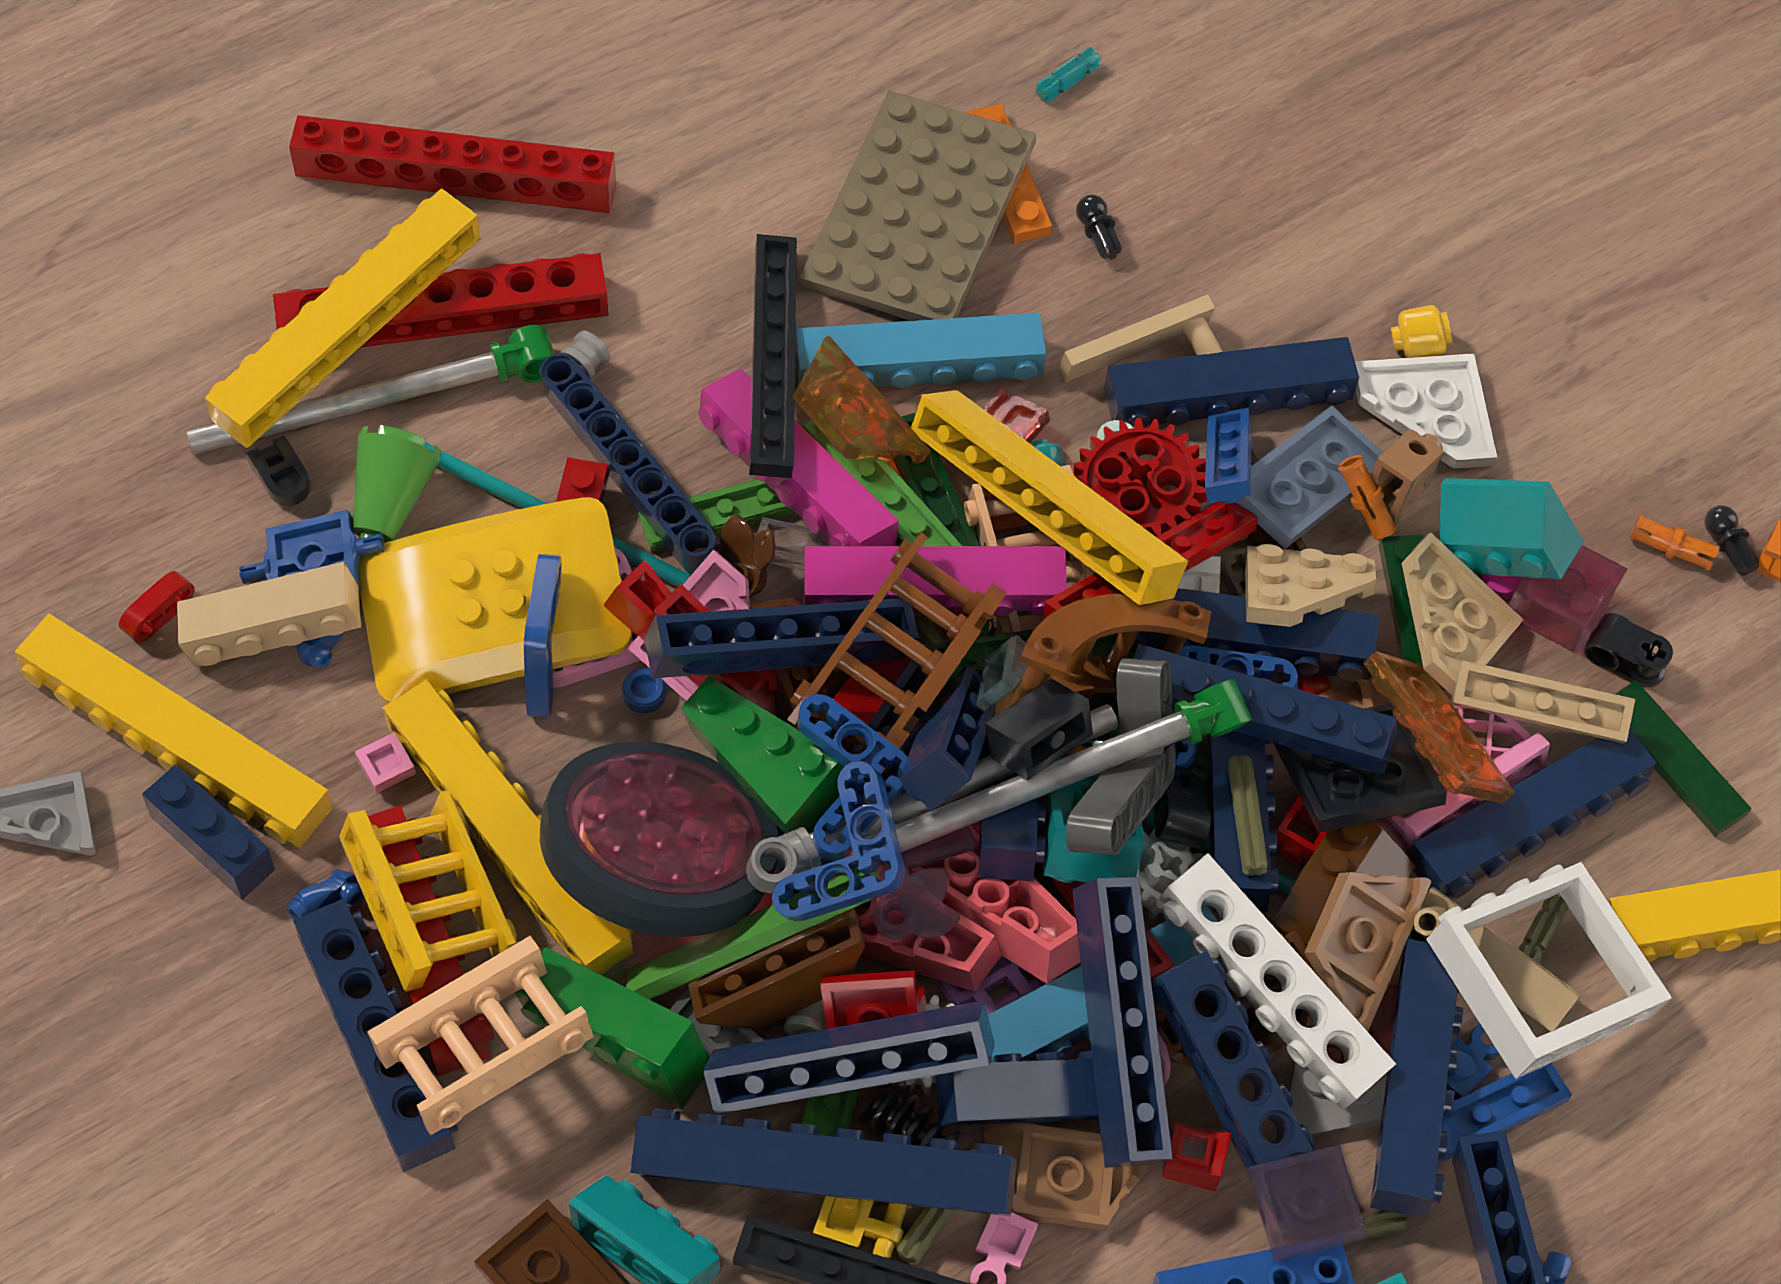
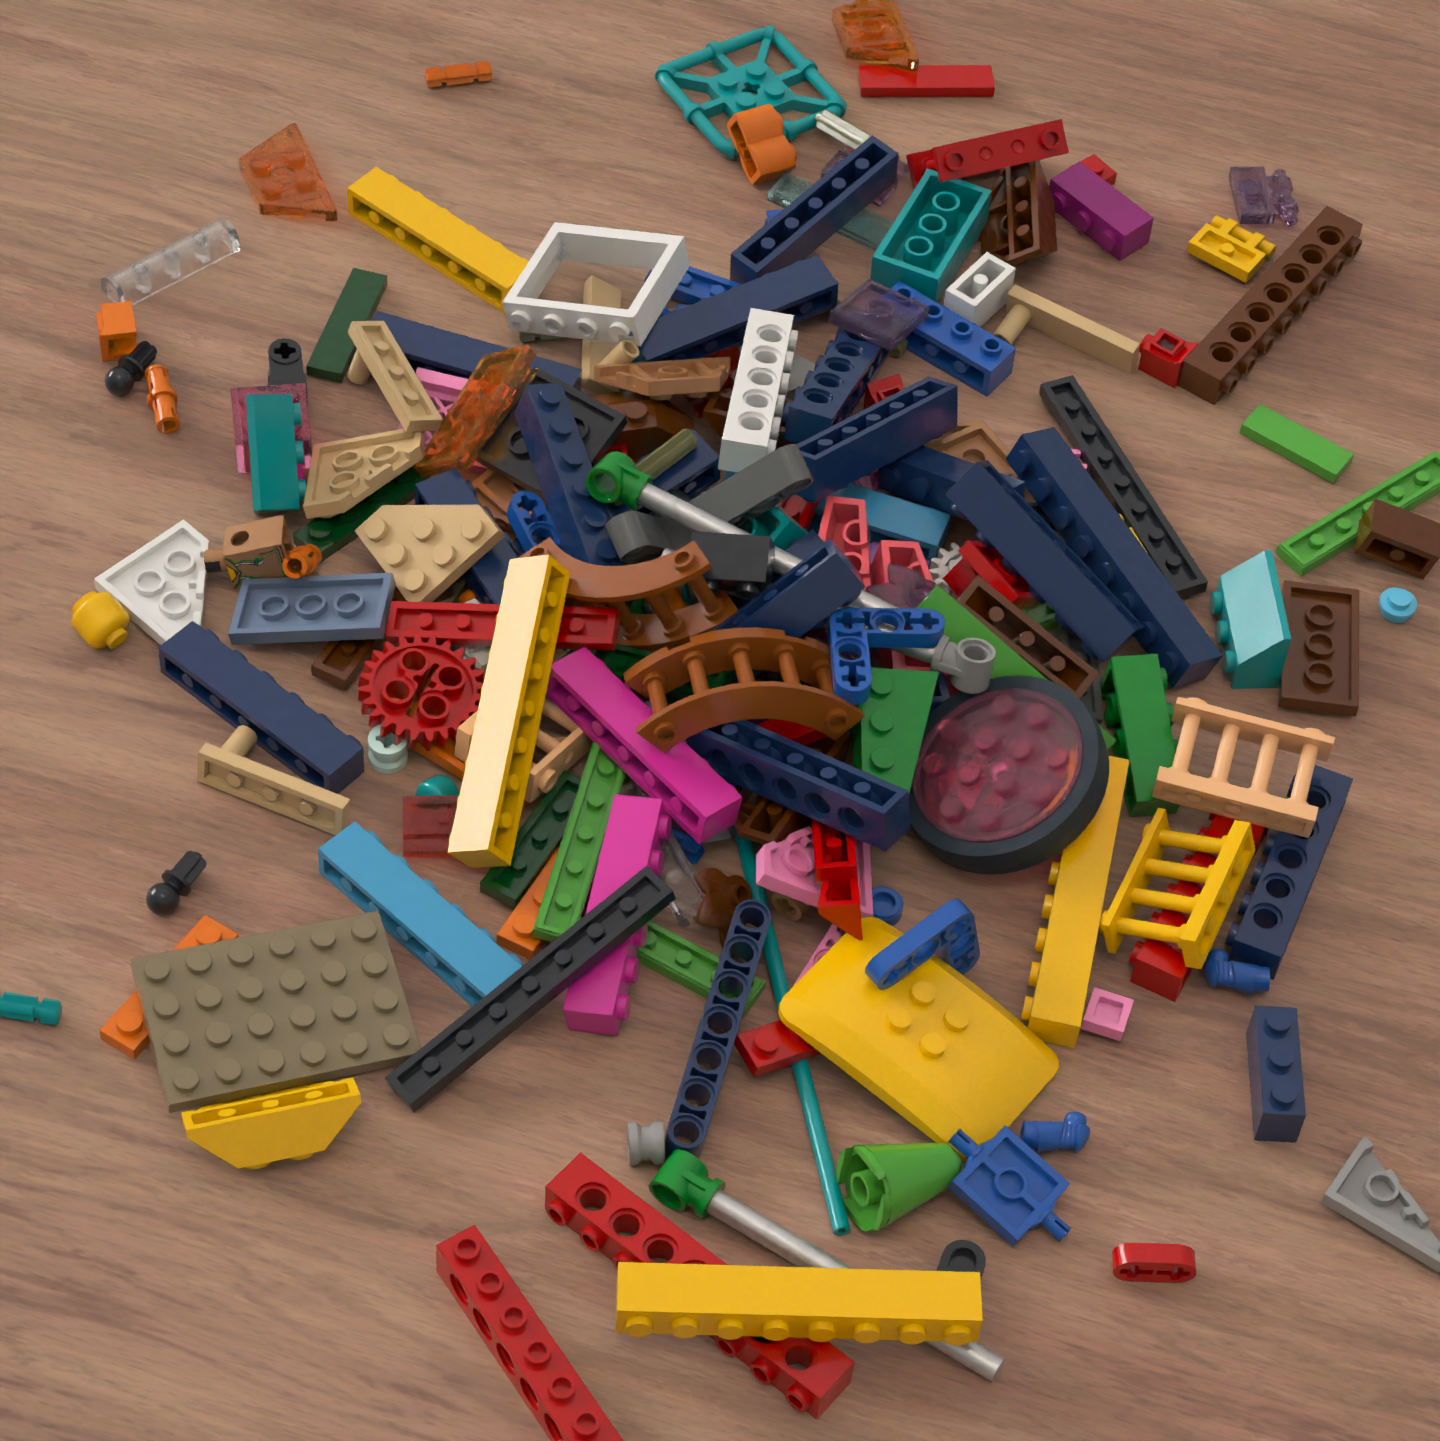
camera: 130 degrees left, 10 degrees down
(173, 731) = (1232, 1170): yellow brick -> none
(268, 614) = (1091, 1159): tan brick -> none
(823, 137) = (274, 1124): none -> yellow wedge
(853, 410) = (537, 896): clear orange wing -> none
(866, 853) = (929, 587): blue beam -> none
(1001, 672) = (680, 618): clear light blue slope -> none
(1228, 456) = (354, 641): blue plate -> none

